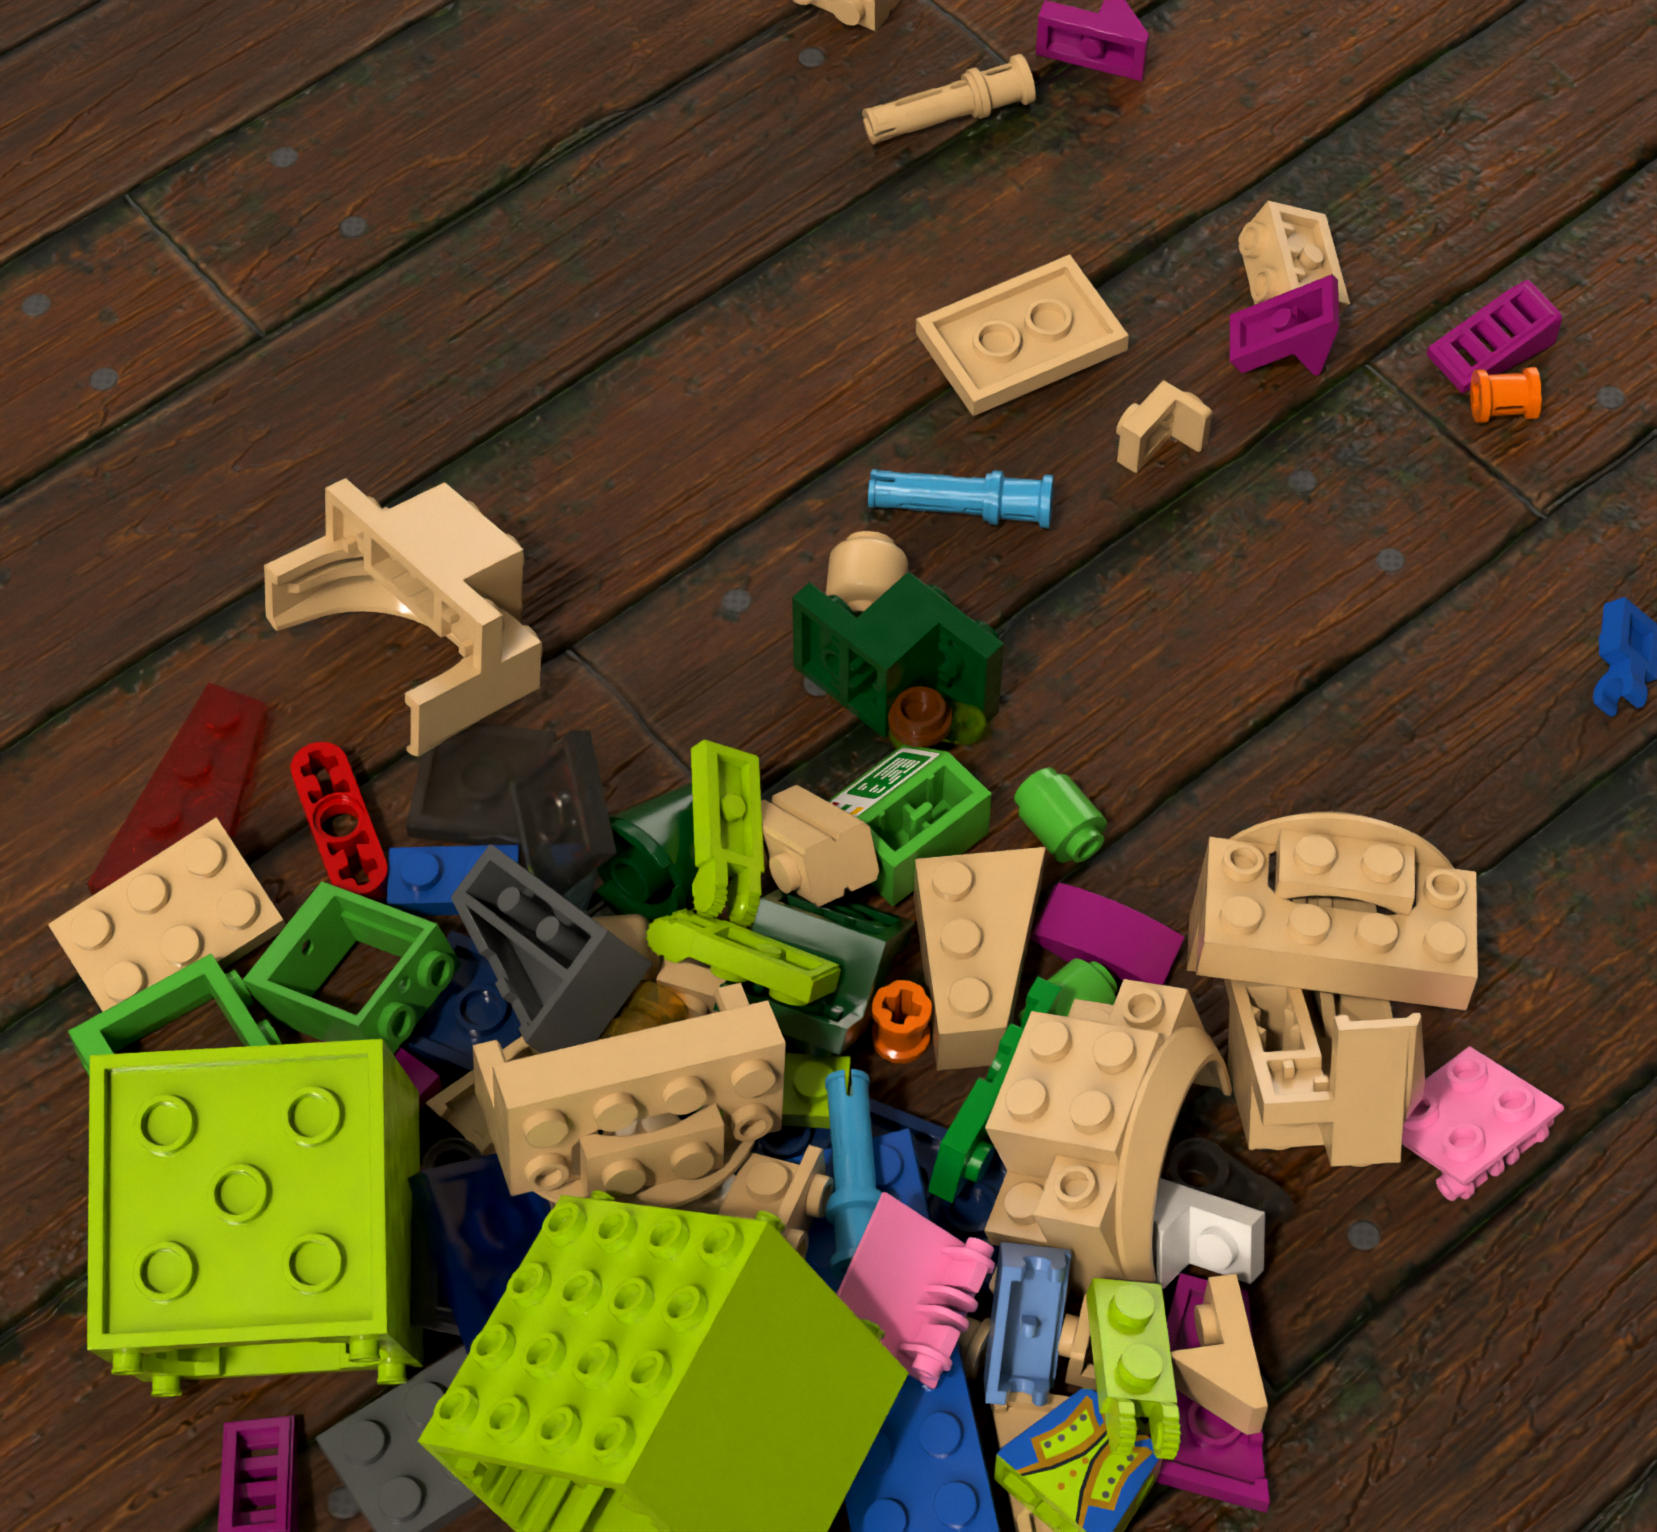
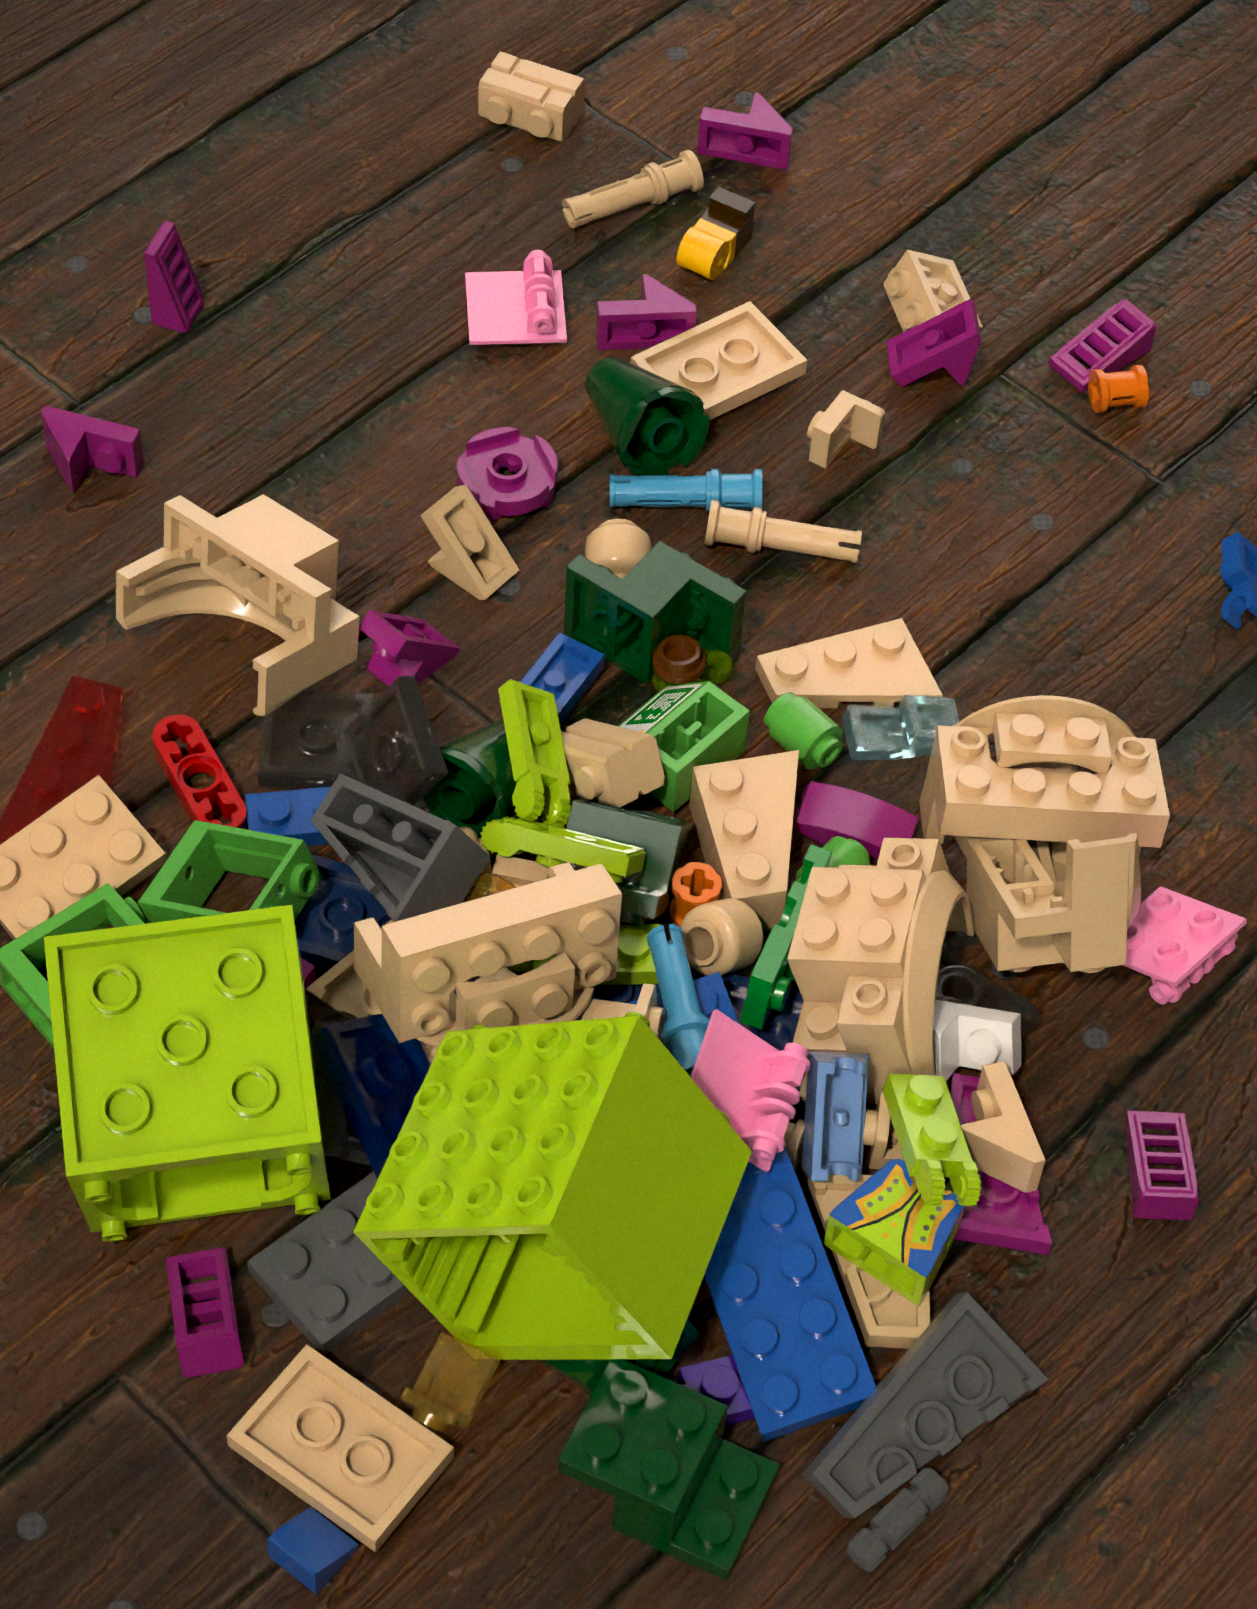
camera: 10 degrees left, 5 degrees down
(262, 388) = (85, 441): none -> magenta slope
(384, 191) = (171, 281): none -> magenta slope
(601, 675) = (405, 647): none -> magenta slope
(690, 549) = (468, 543): none -> tan slope
(750, 486) = (511, 494): none -> magenta plate
(780, 725) = (565, 671): none -> blue plate
(791, 240) = (517, 304): none -> bright pink hinge
(920, 1079) = (722, 936): none -> tan head
(923, 399) = (646, 416): none -> dark green cone
(939, 274) = (645, 321): none -> magenta slope
(1040, 552) = (755, 530): none -> tan pin
(1042, 165) = (717, 235): none -> leg
(1137, 735) = (855, 666): none -> tan wing
(1177, 822) = (899, 731): none -> clear light blue slope
(1415, 1457) = (1161, 1201): none -> magenta slope

